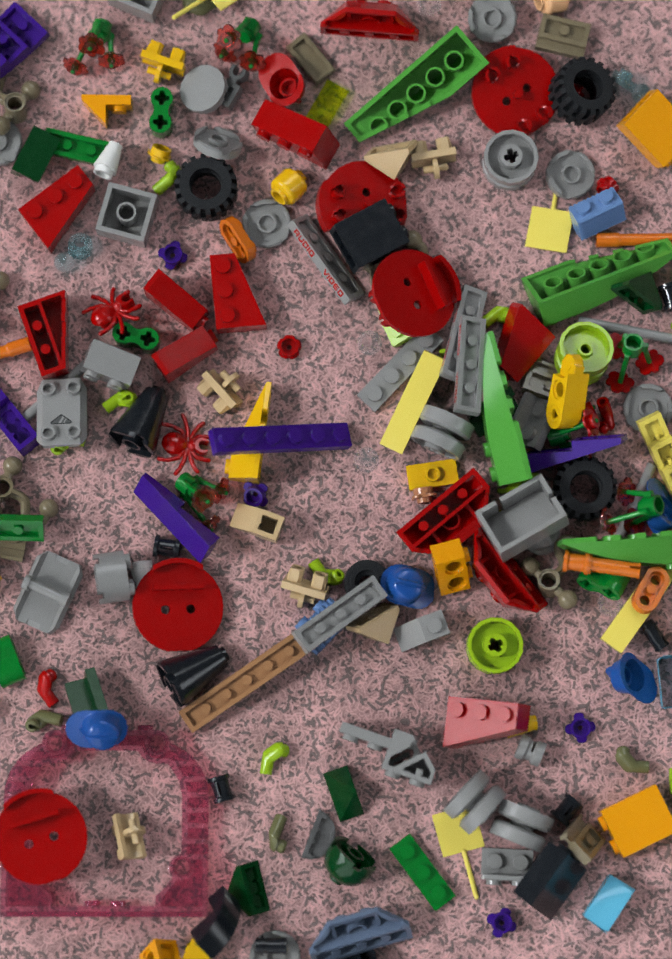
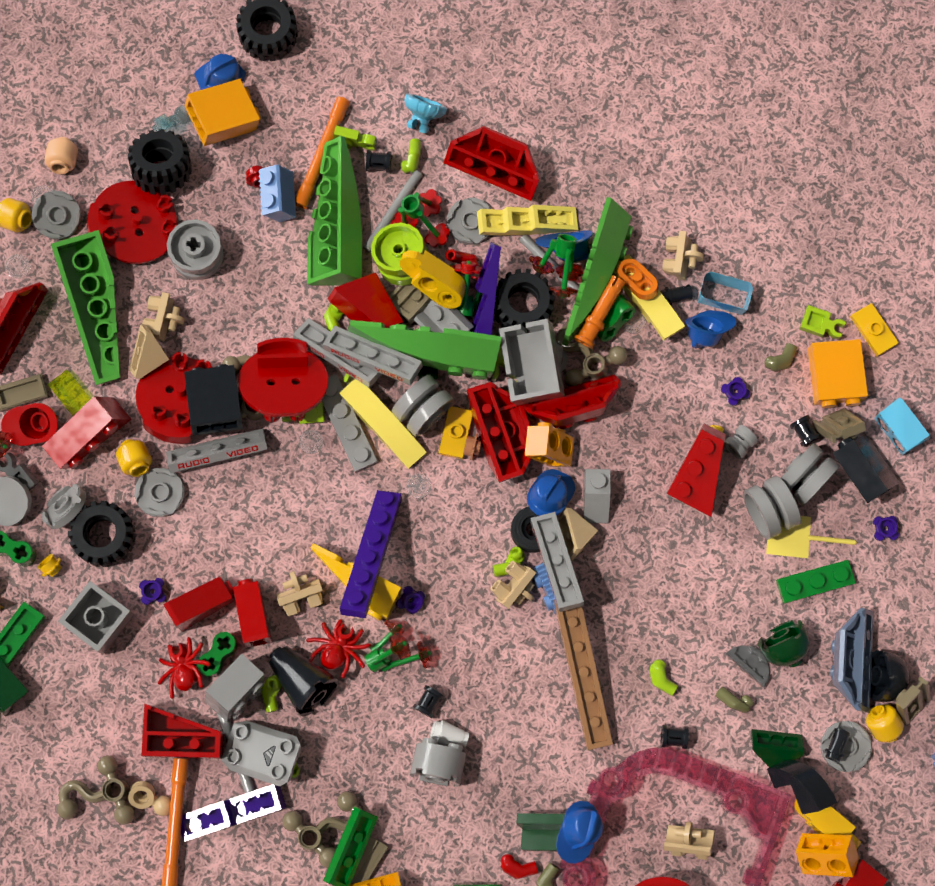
camera: 75 degrees left, 5 degrees down
(47, 592) = (427, 832): light grey shield -> none
(58, 206) = (59, 682): red wedge -> none
(65, 261) = (115, 695): clear light blue plate -> none
(108, 161) = (36, 615): white cone -> none
(168, 179) = (78, 566): lime arm -> none
(169, 511) = (394, 686): dark purple slope -> none
(177, 585) = (469, 705): red piece -> none
(191, 672) = (556, 723): black cone -> none
(233, 299) = (216, 548): red wedge -> none
(237, 239) = (163, 524): orange plate -> none
(257, 522) = (438, 607): tan slope -> none
(293, 342) = (278, 516): red plate -> none
(343, 793) = (718, 625): dark green slope -> none
(418, 768) = (705, 563): light grey piece -> none
(505, 864) = (836, 504): light grey bracket -> none
(507, 638) = (641, 423): lime wheel -> none
(549, 228) = (271, 240): light yellow piece -> none
(562, 36) = (101, 161): dark tan plate -> none
(570, 174) = (230, 204): light grey tile -> none
(640, 293) = (365, 184): dark green slope -> none

